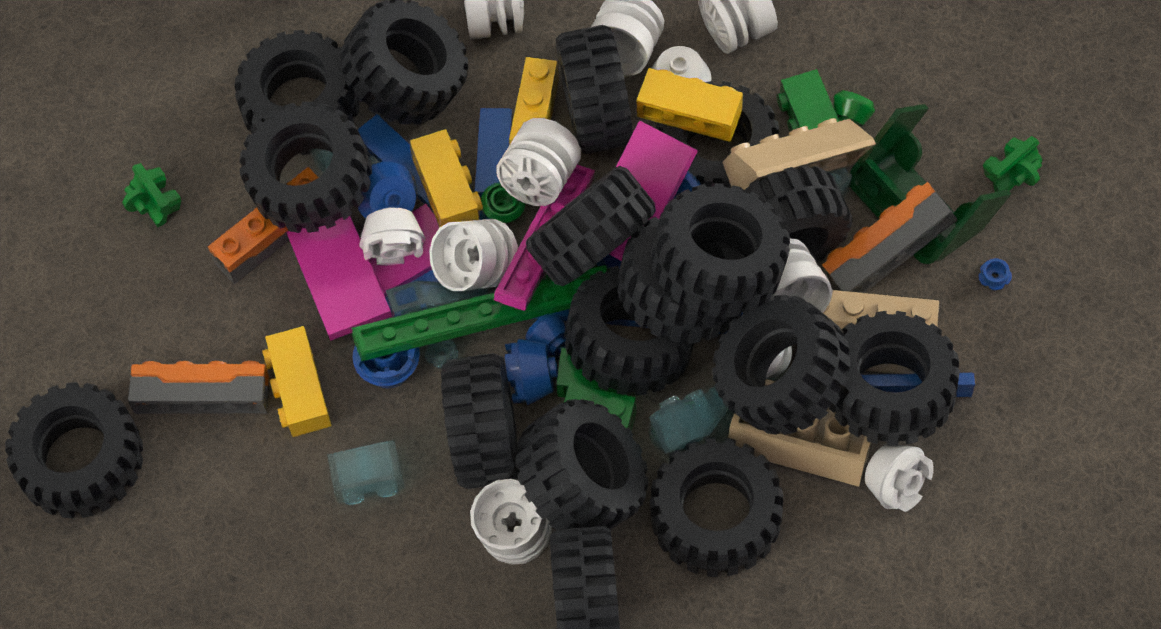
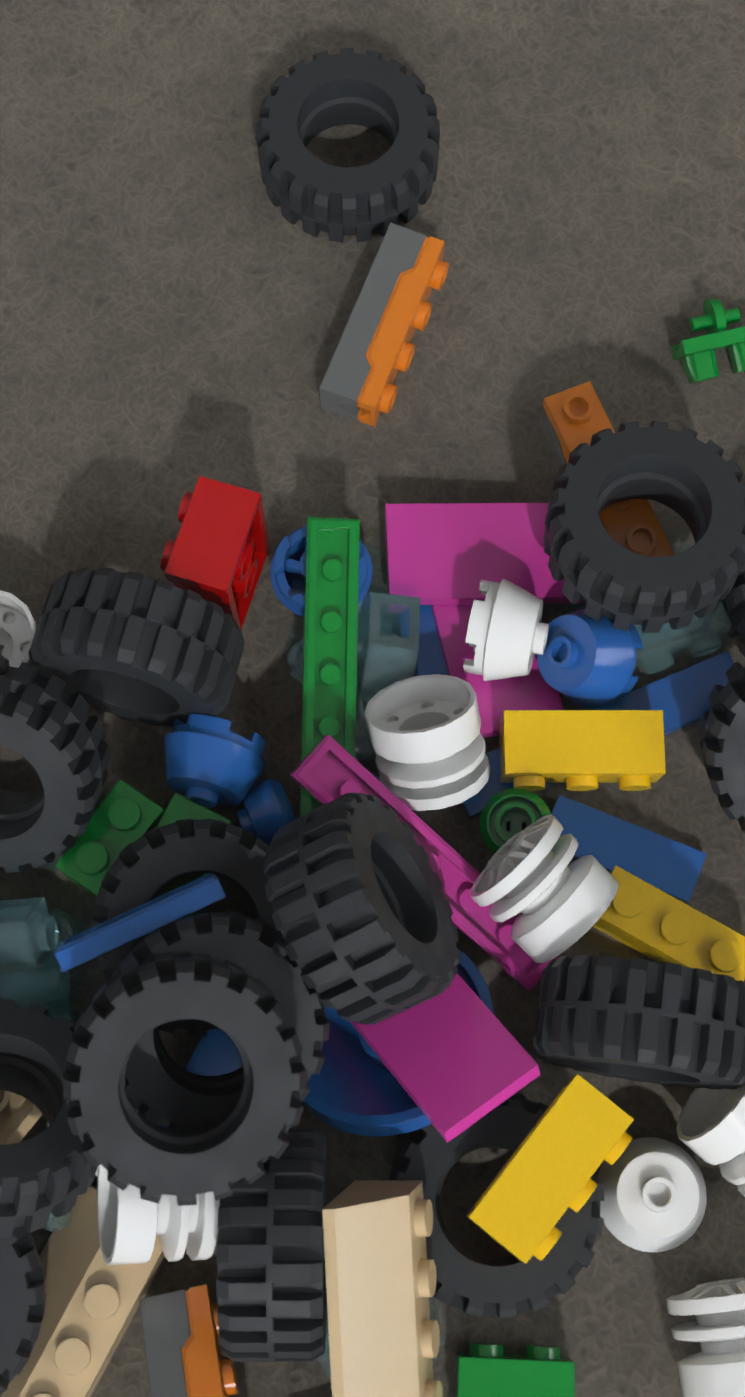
camera: 105 degrees right, 10 degrees up
(296, 382) = (340, 451): yellow brick -> none
(366, 472) = (159, 483): clear light blue brick -> none
(403, 403) = (219, 546): none -> red brick
(645, 330) = (138, 921): none -> blue tile

